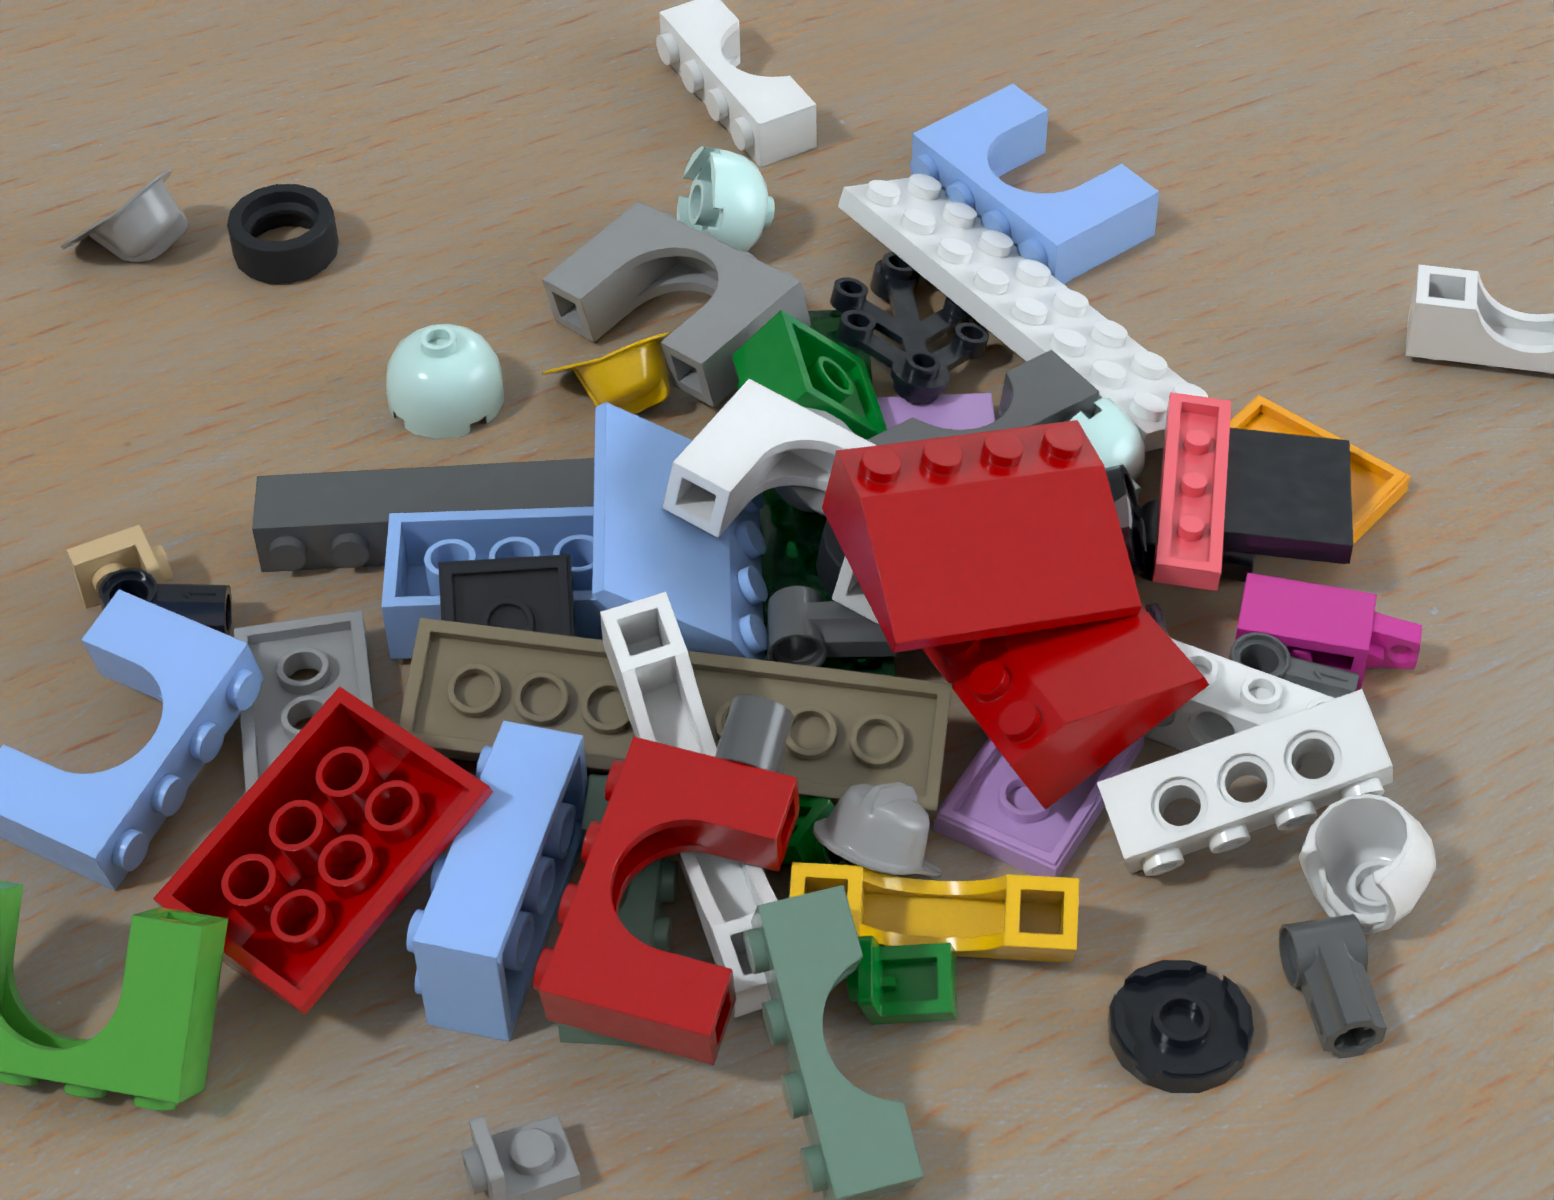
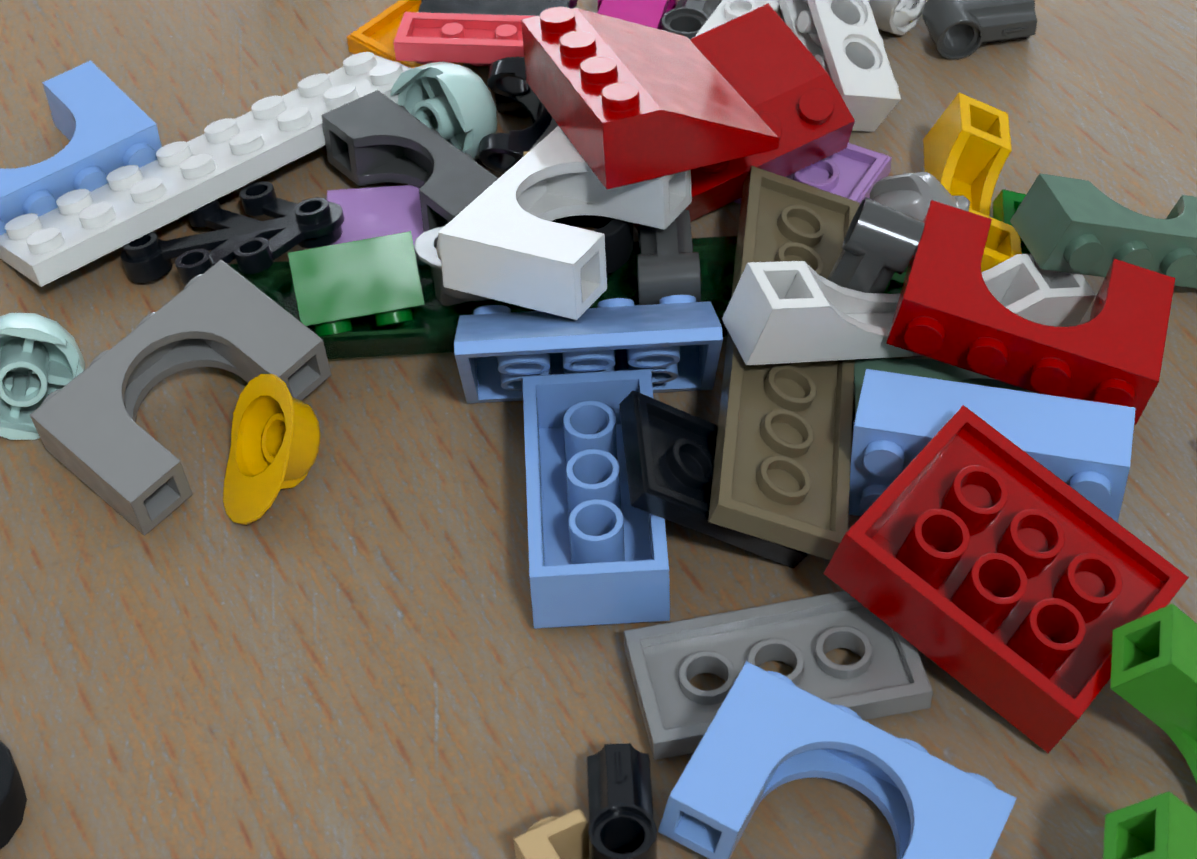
camera: 90 degrees left, 0 degrees up
(344, 515) = (476, 591): dark grey brick -> none
(444, 381) = (254, 608): light aqua cylinder -> none
(1180, 1027) = (1037, 104): black tile -> none

